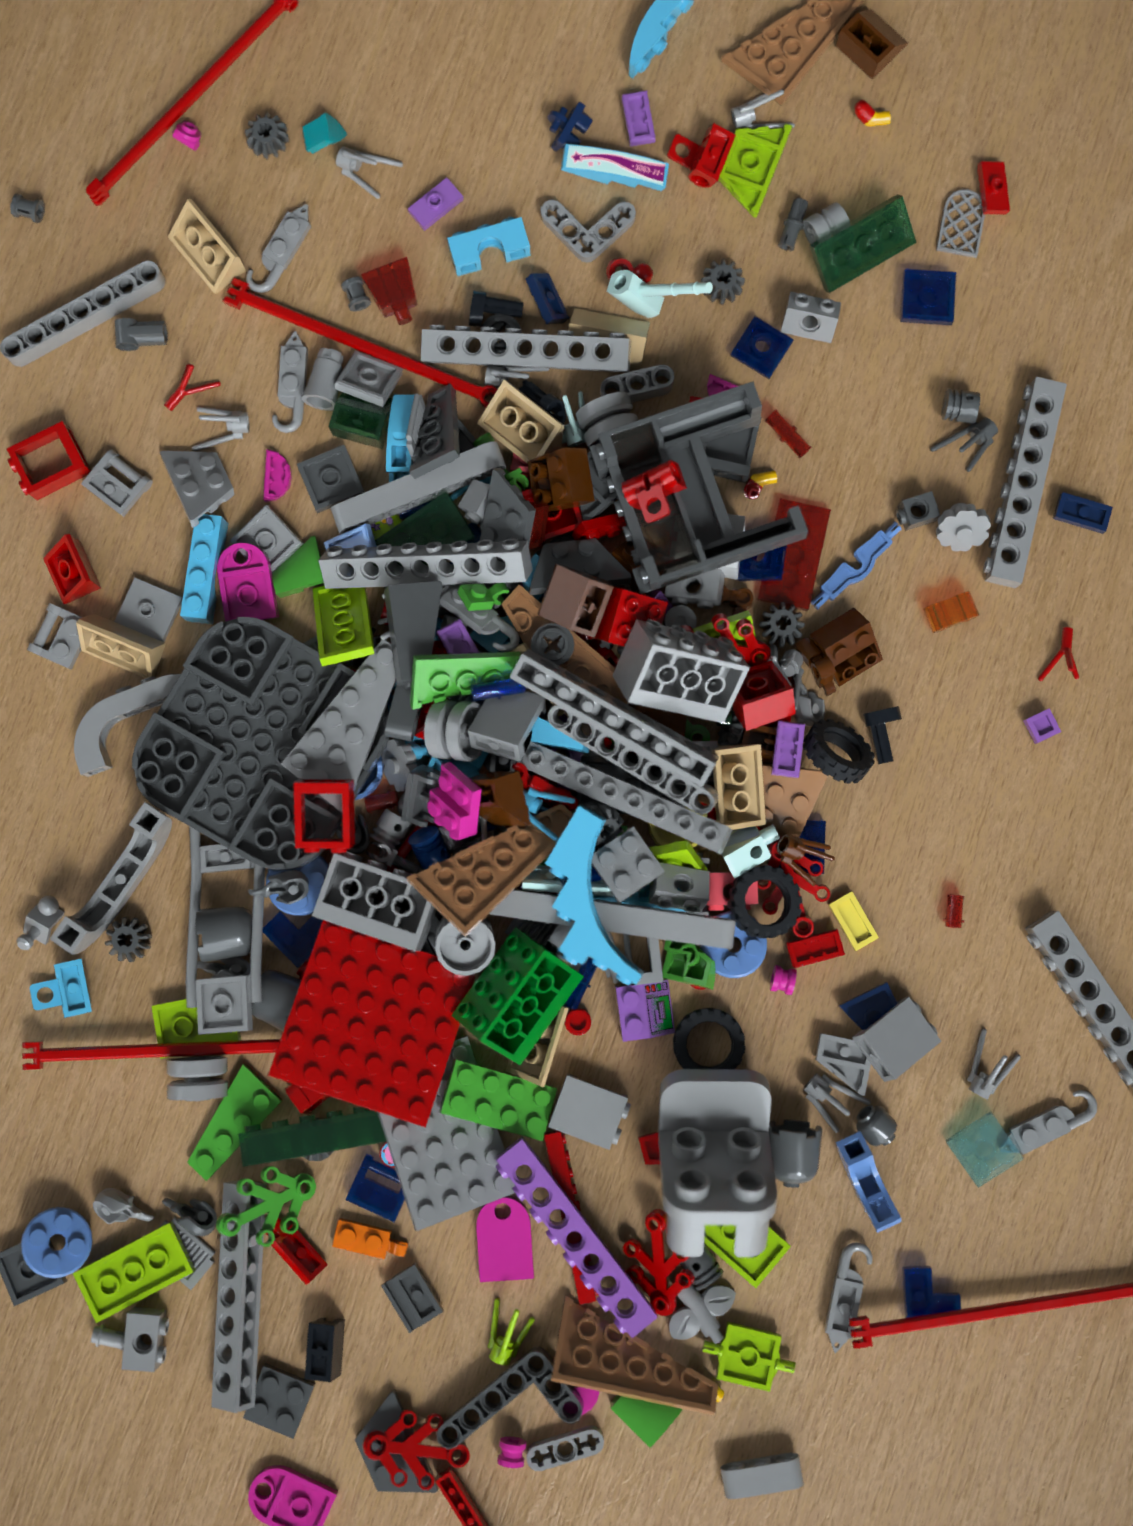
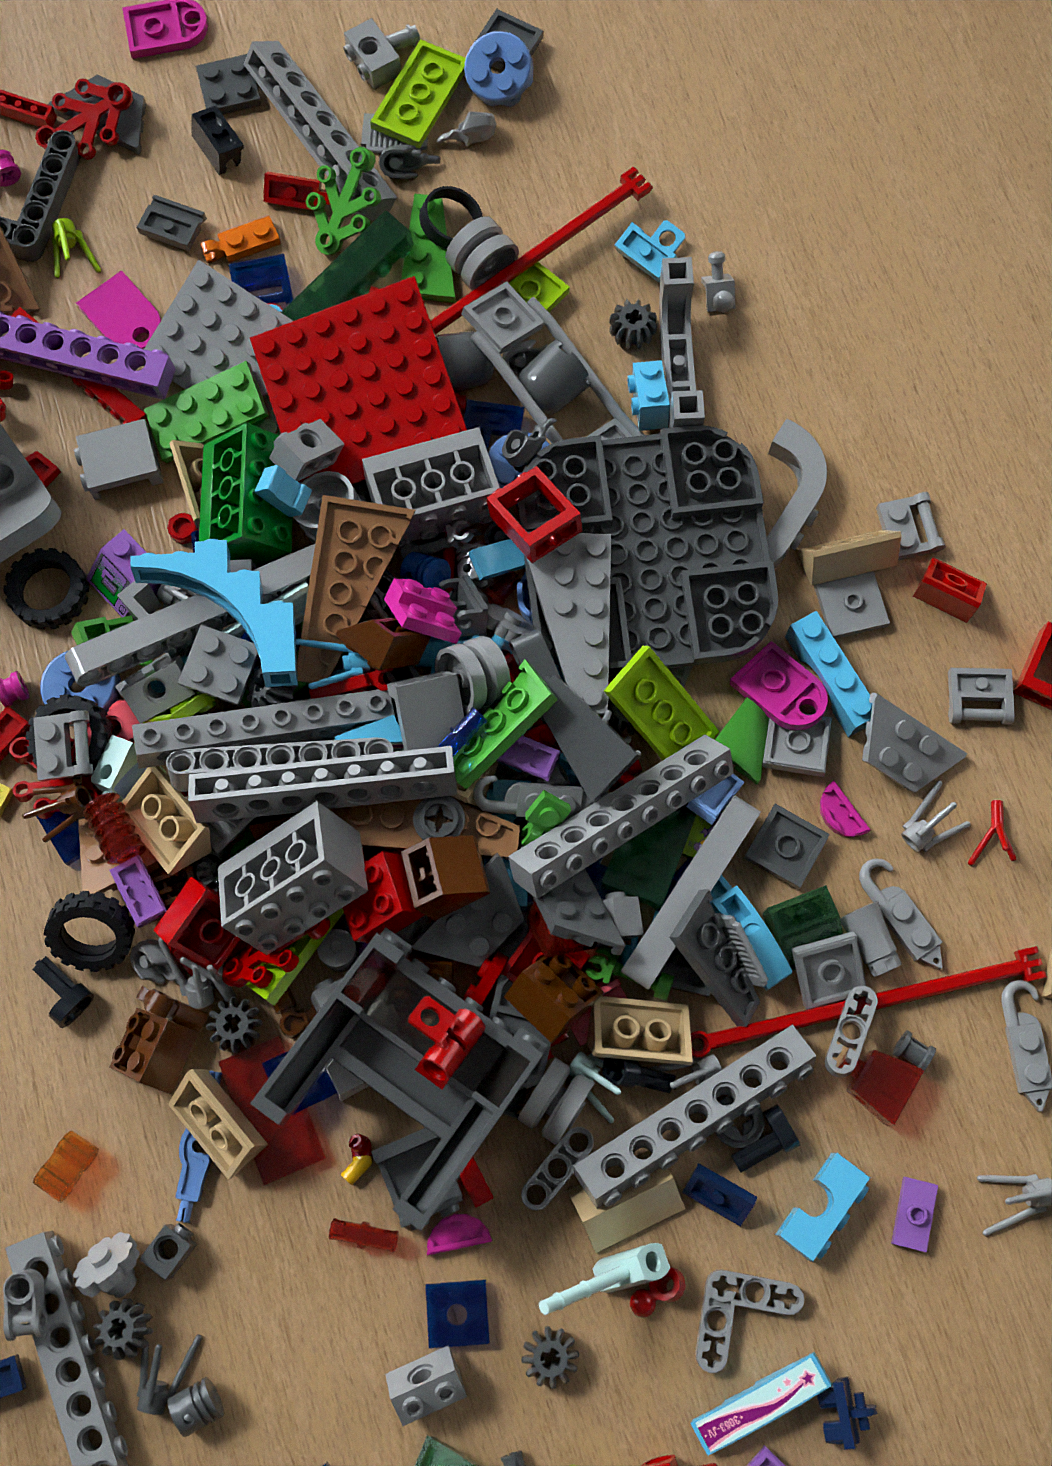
camera: 140 degrees right, 10 degrees down
(163, 868) = (650, 395): none -> medium azure brick
(171, 1130) = (450, 193): none -> black tyre
(373, 818) = (496, 559): none -> medium azure tile
(375, 347) = (834, 1048): none -> light grey beam
(450, 991) = (306, 449): none -> light grey brick
(490, 967) = (283, 491): none -> medium azure piece
(778, 802) = (112, 830): none -> clear red piece
(781, 895) = (54, 746): none -> light grey plate
(835, 565) = (216, 1122): none -> tan slope
(984, 476) = (132, 1336): none -> dark grey gear
(1032, 531) = (24, 1308): none -> light grey piece

